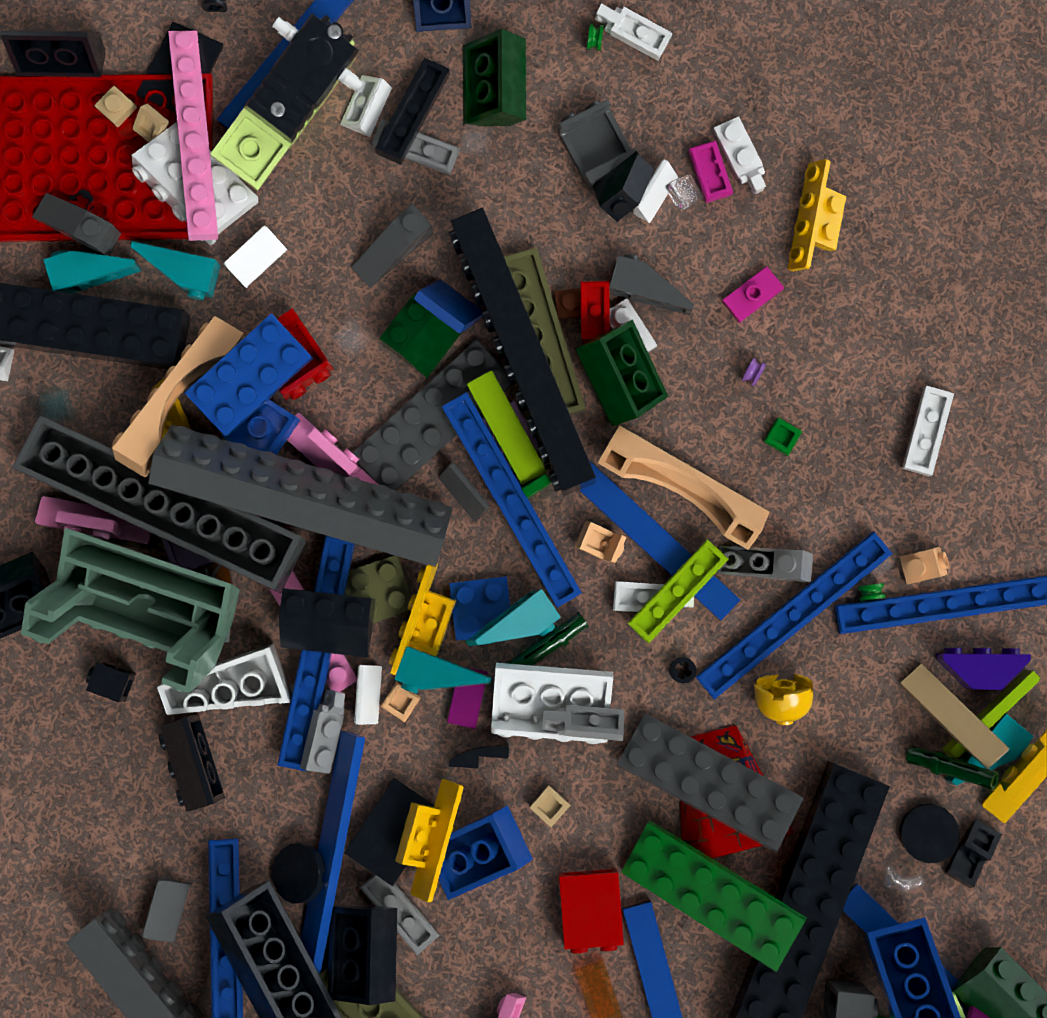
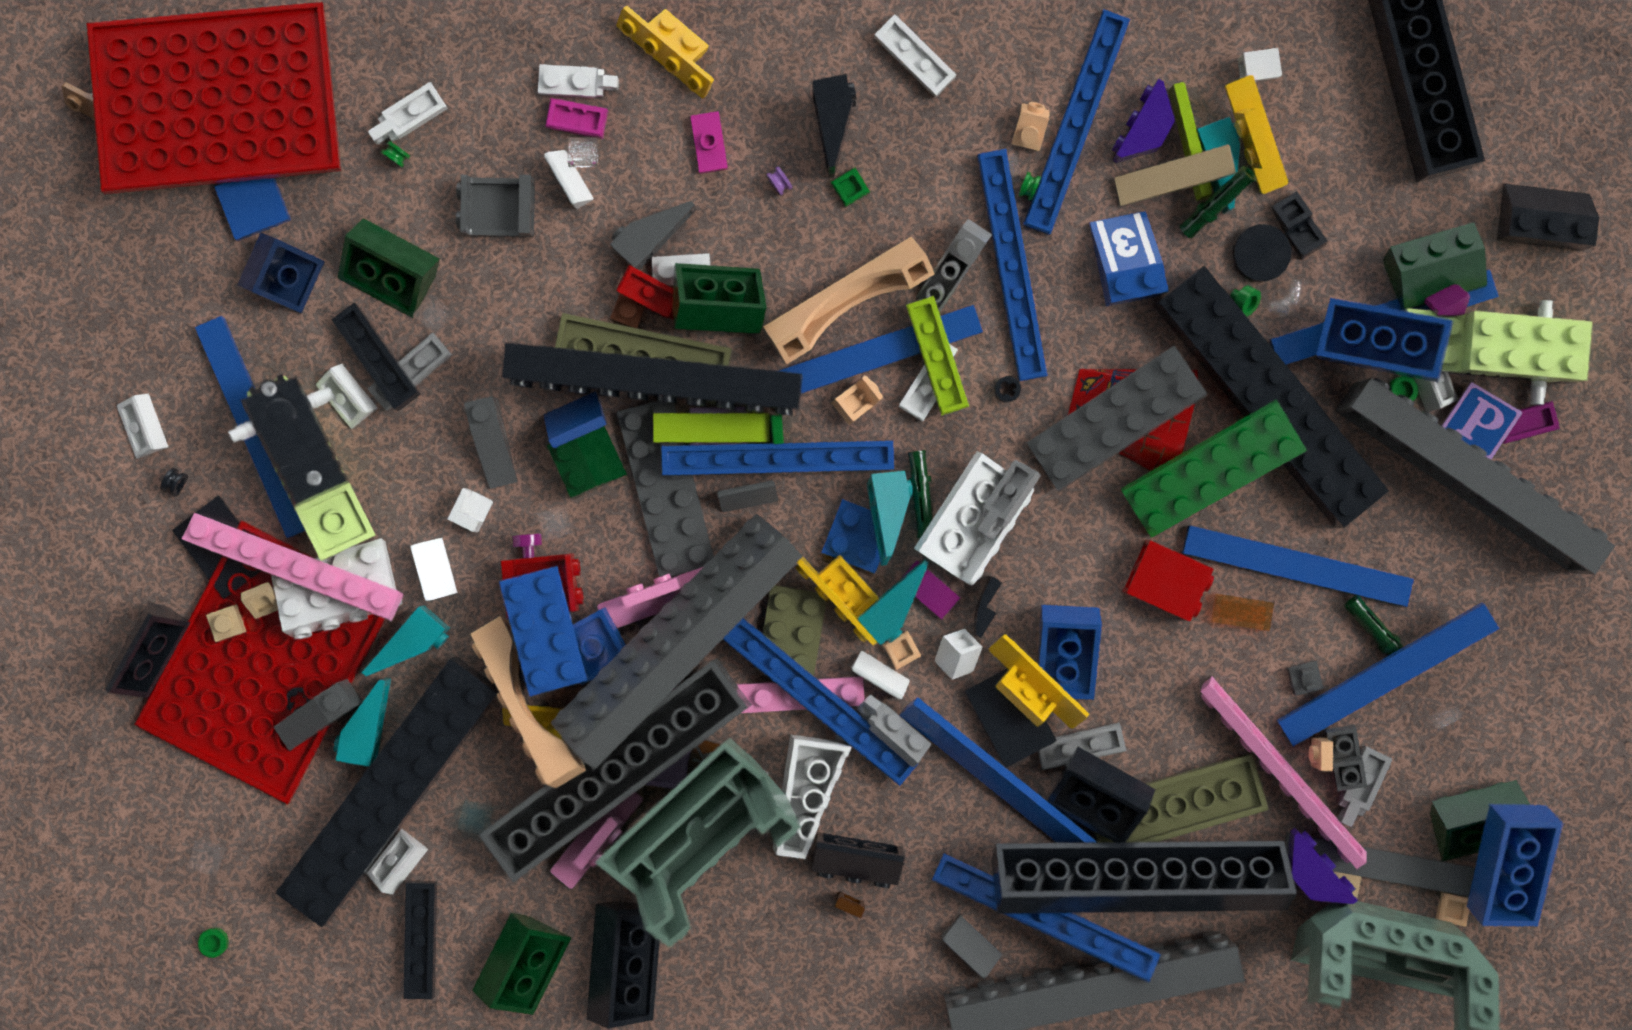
camera: 60 degrees left, 5 degrees up
(109, 682) = (747, 895): black brick -> none
(147, 778) = (849, 904): none -> reddish brown tile
(298, 873) = (1002, 816): black tile -> none
(321, 323) = (527, 543): none -> magenta tile
(323, 260) = (470, 510): none -> white panel
(326, 622) = (799, 677): black slope -> none
(423, 754) = (958, 654): none -> white panel
(549, 806) = (1061, 568): tan plate -> none
(624, 186) = (550, 204): black slope -> none
(784, 699) = (1082, 311): yellow cylinder -> none
(845, 382) = (833, 107): none -> black slope
(856, 715) = (1128, 259): none -> blue slope
(881, 842) = (1246, 299): none -> green tile

